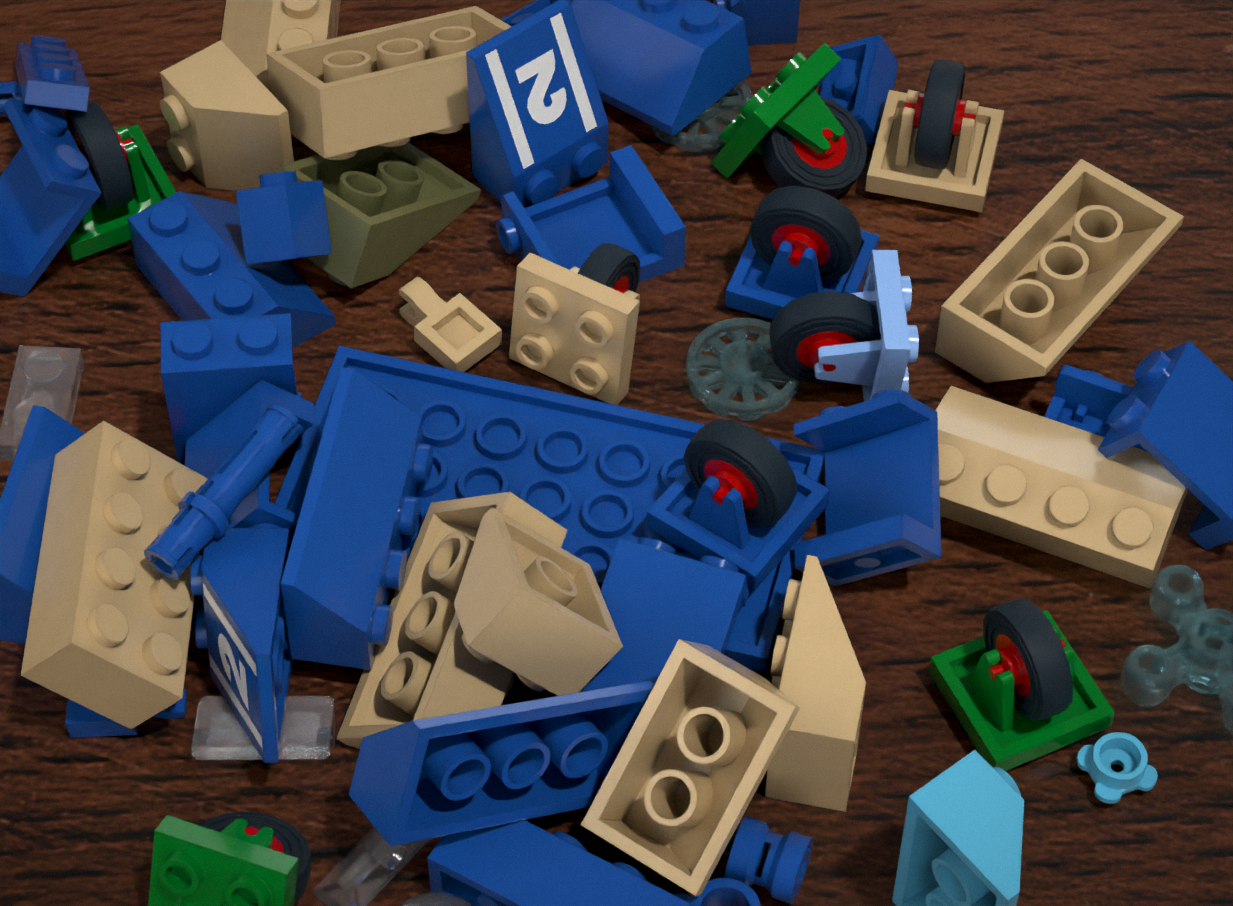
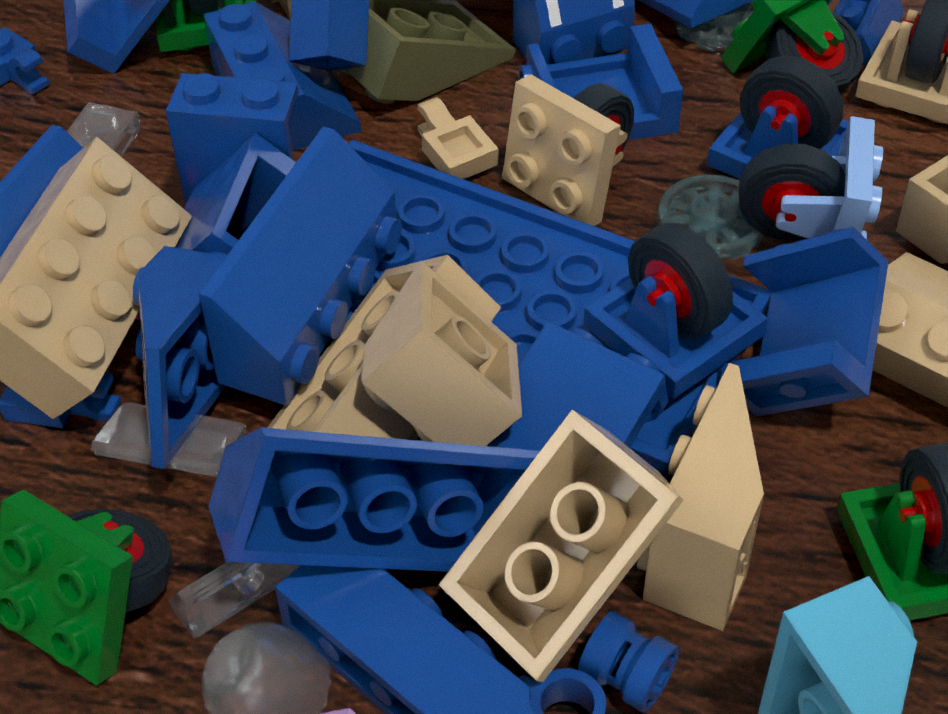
camera: 15 degrees right, 5 degrees down
(209, 508) = (162, 224): blue pin -> none

